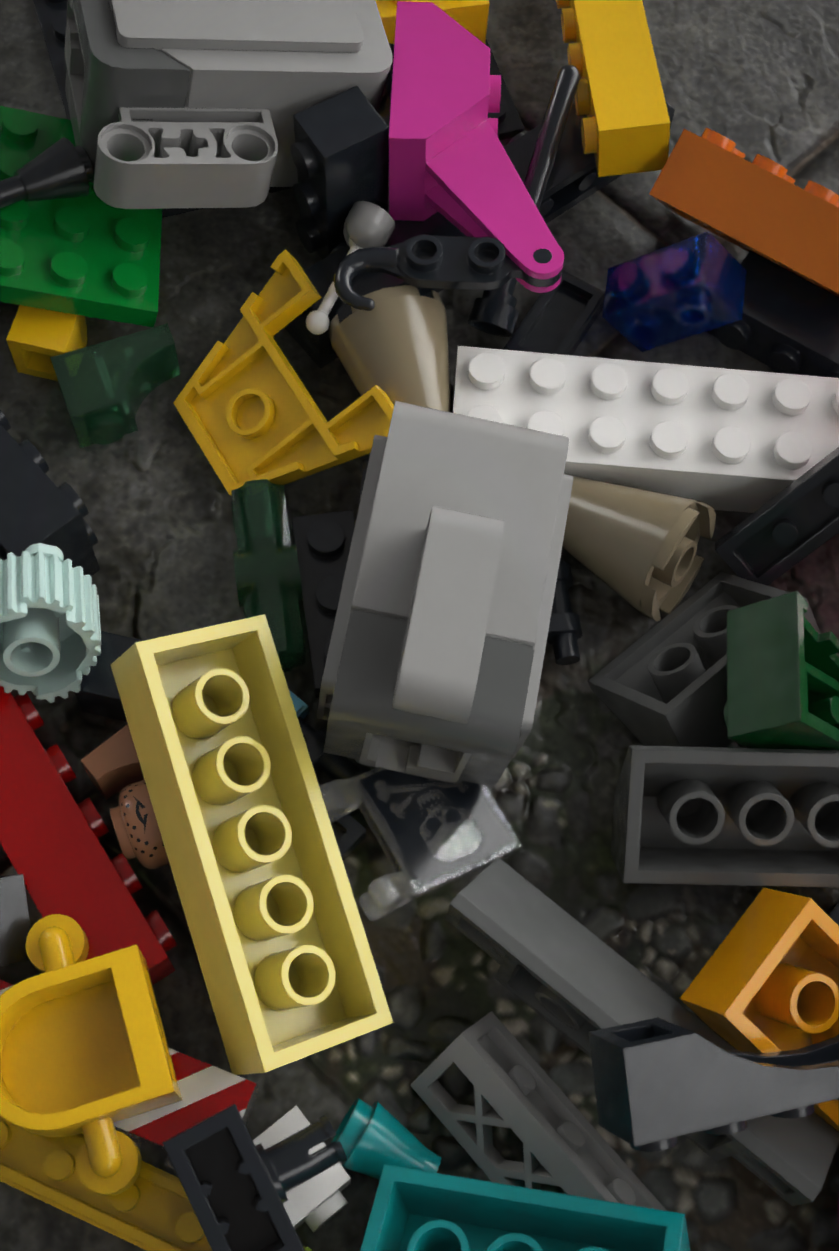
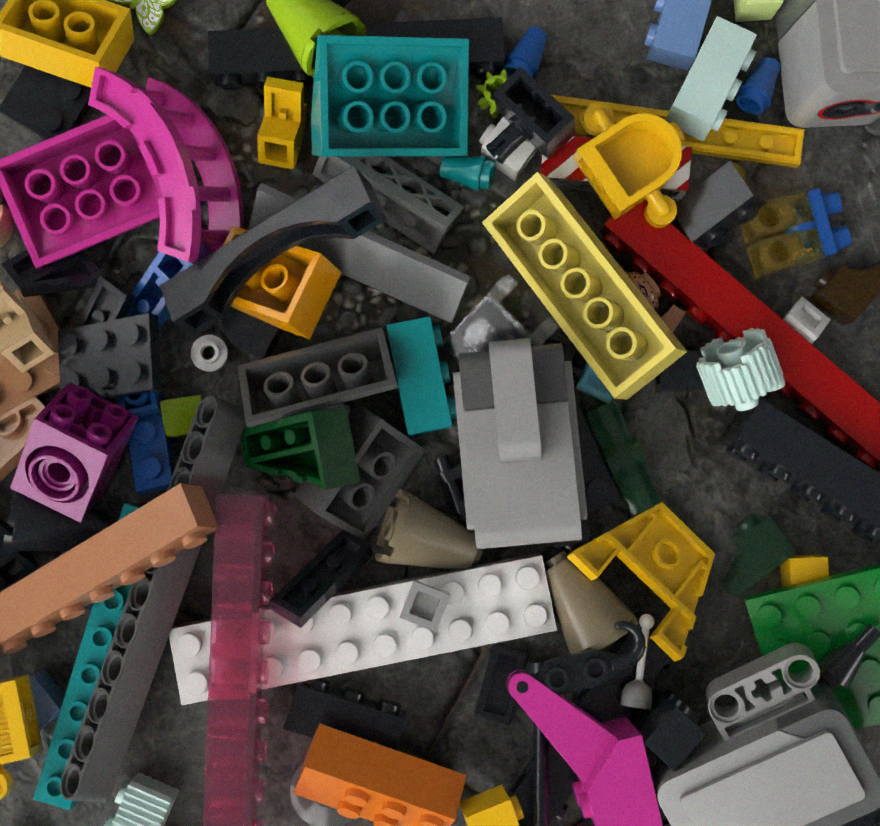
camera: 170 degrees right, 20 degrees up
(571, 794) = (421, 376): none -> teal brick
(659, 415) = (424, 605): none -> light grey plate
(675, 292) = (433, 712): clear blue brick -> none

